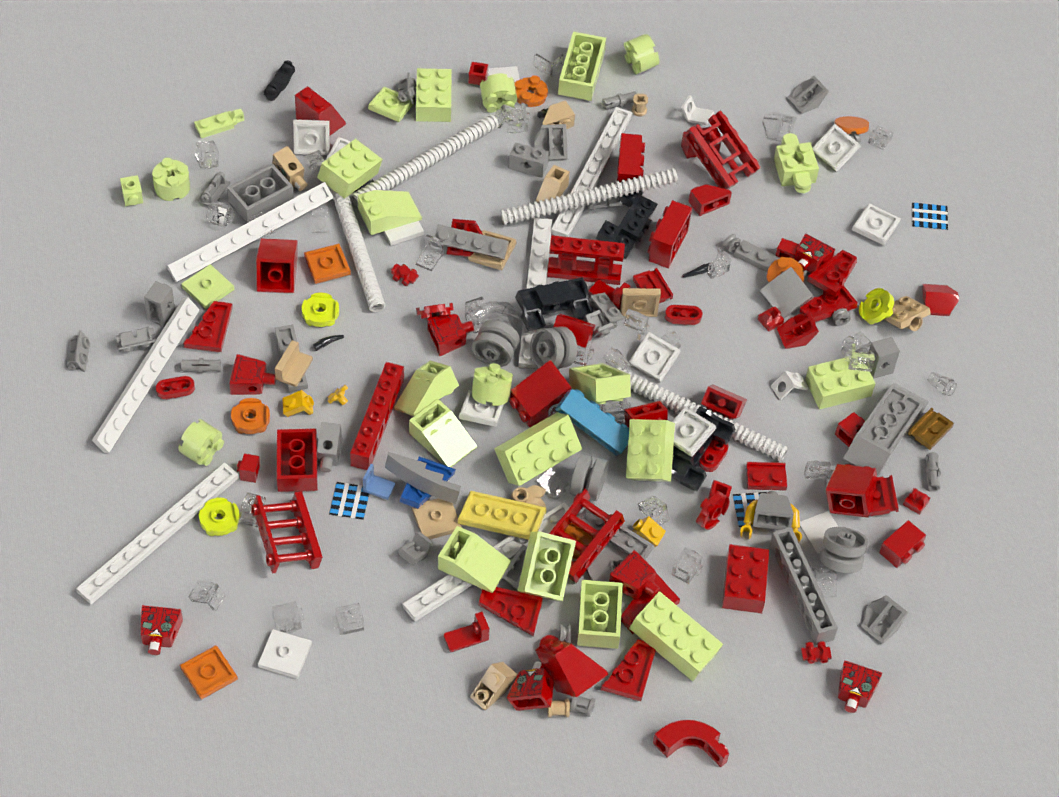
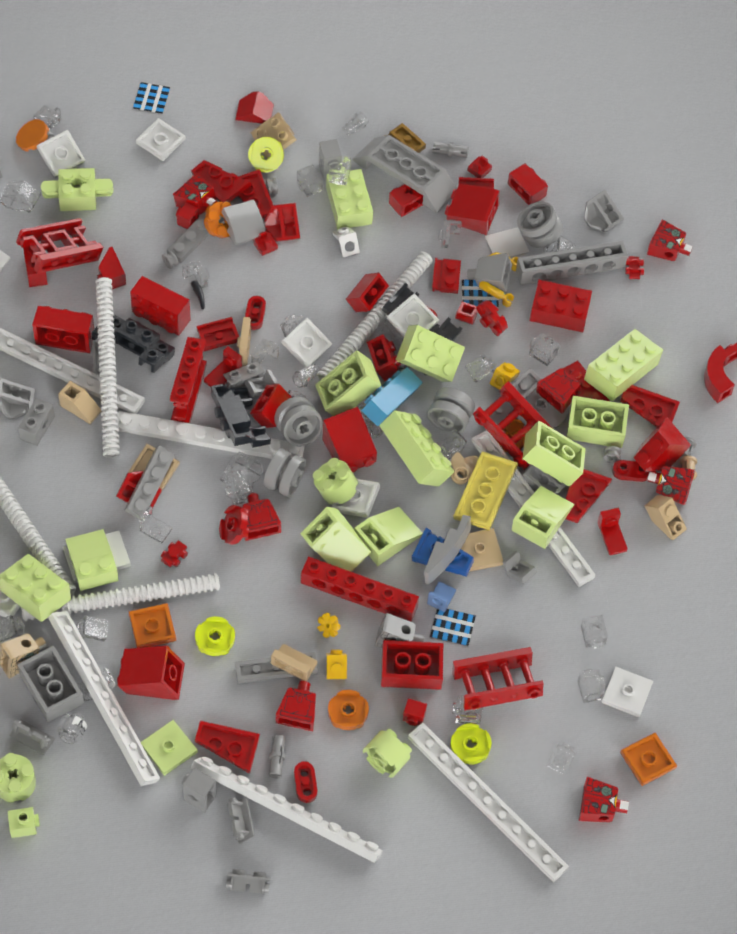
camera: 85 degrees left, 5 degrees up
(326, 341) = (256, 635): black helmet -> none

